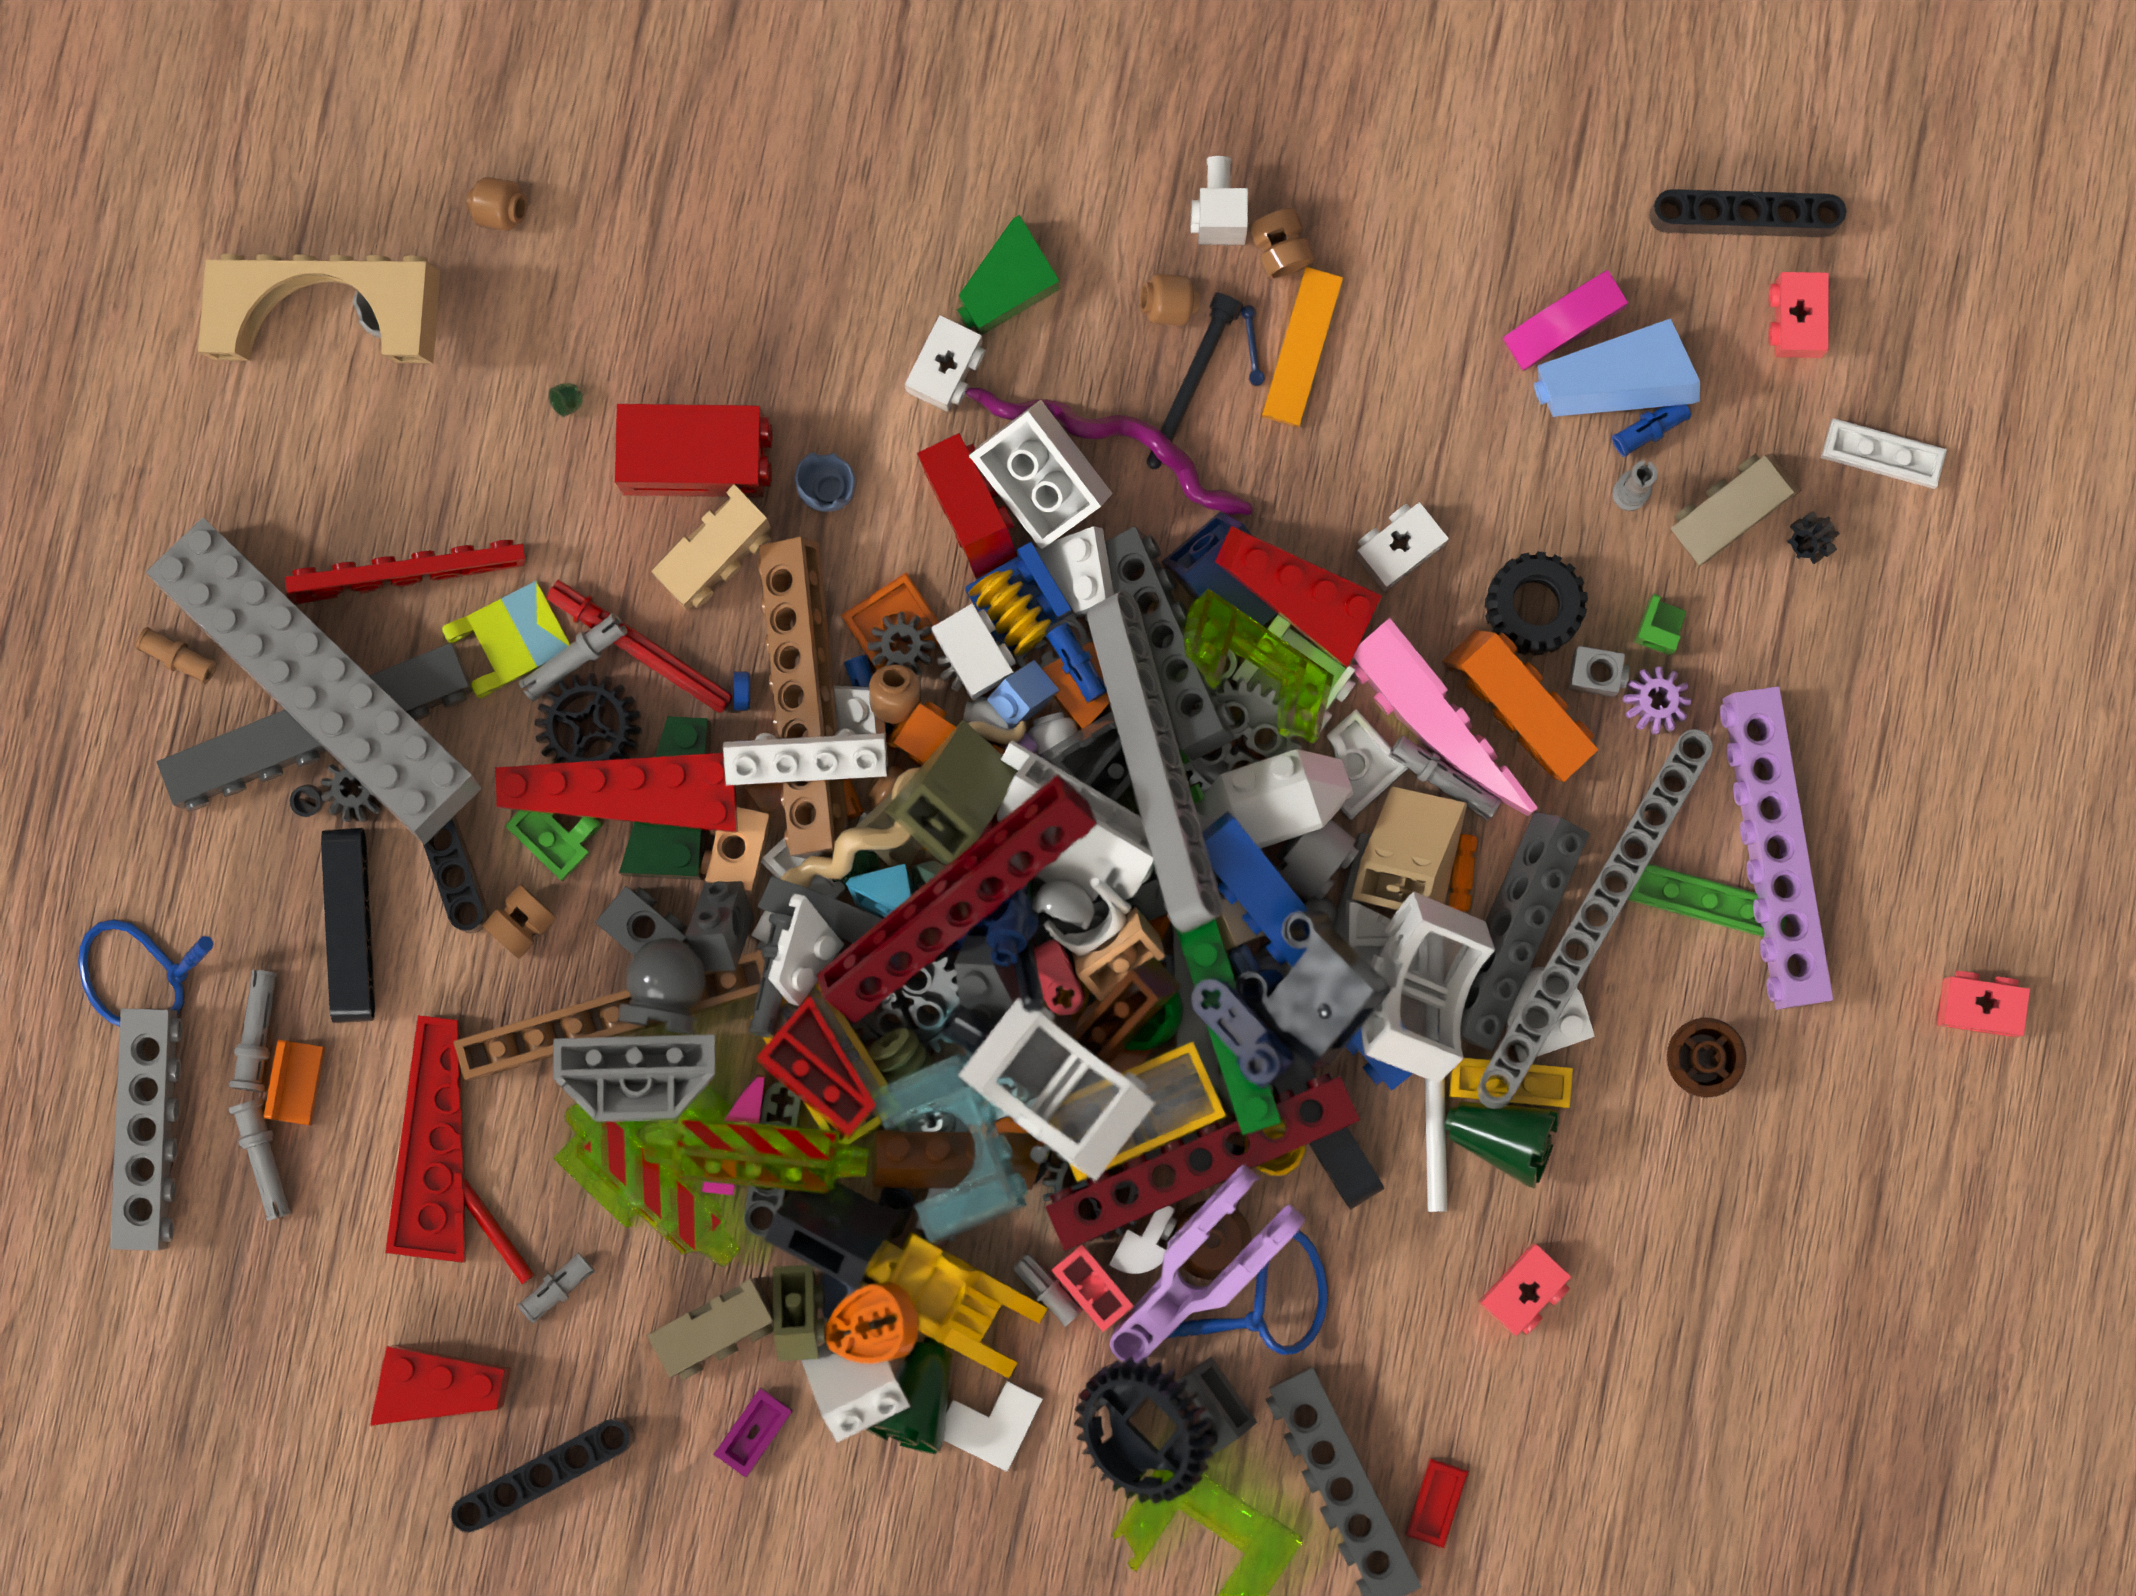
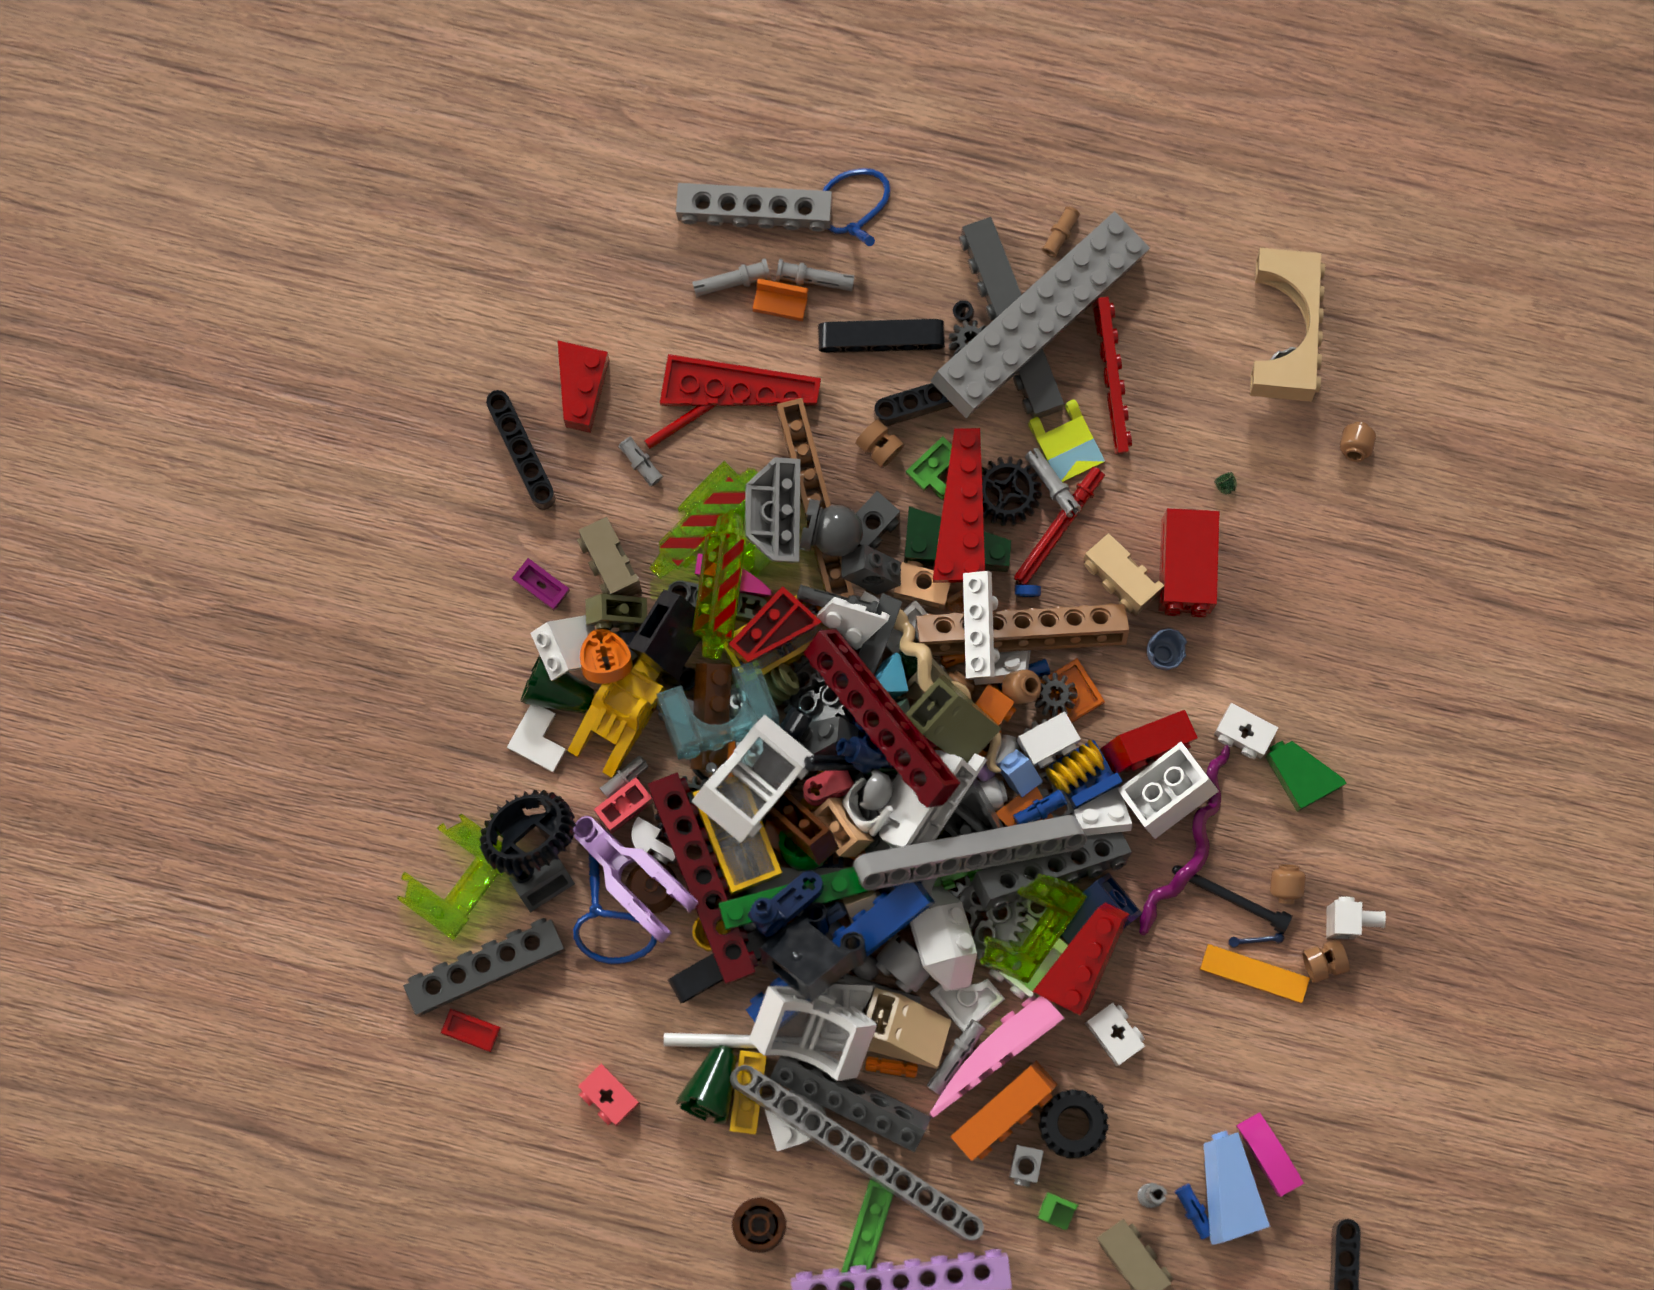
camera: 85 degrees right, 5 degrees down
(1643, 701) = (1006, 1214): lavender gear -> none

